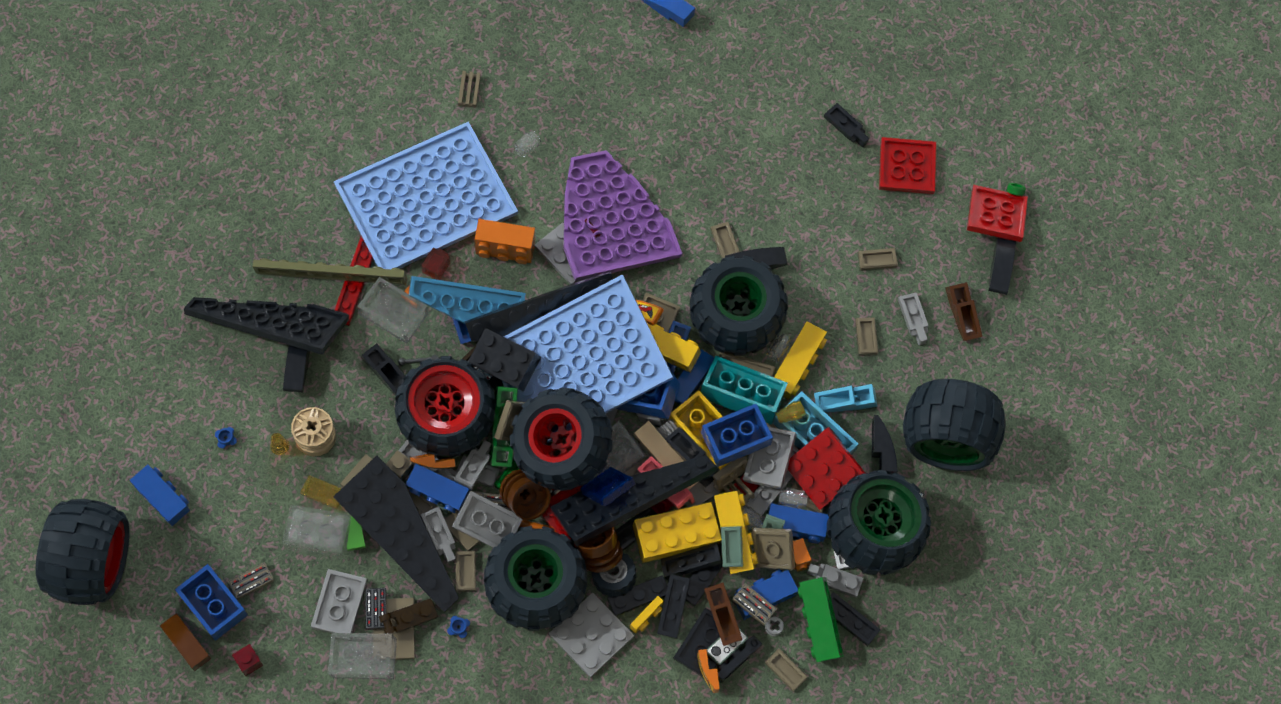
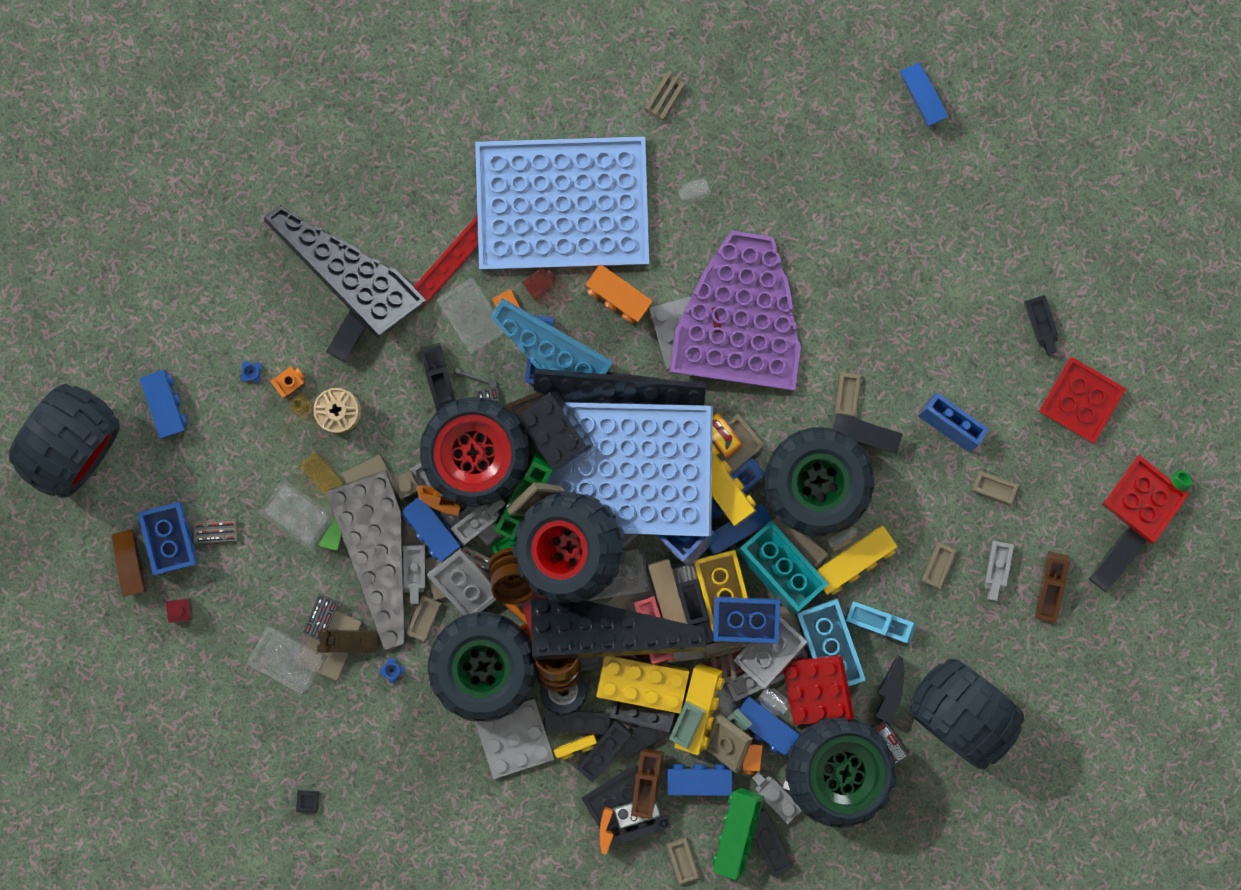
camera: 30 degrees right, 20 degrees up
(261, 436) = (284, 389): none -> orange brick
(332, 272) = (435, 248): olive plate -> none
(339, 602) = (288, 594): light grey plate -> none
(608, 486) = (593, 615): clear blue plate -> none
(754, 604) = (681, 789): tile -> none
(768, 625) = (698, 817): light grey bush -> none
(791, 412) = (813, 619): clear yellow cone -> none
(819, 222) = (953, 422): none -> blue brick

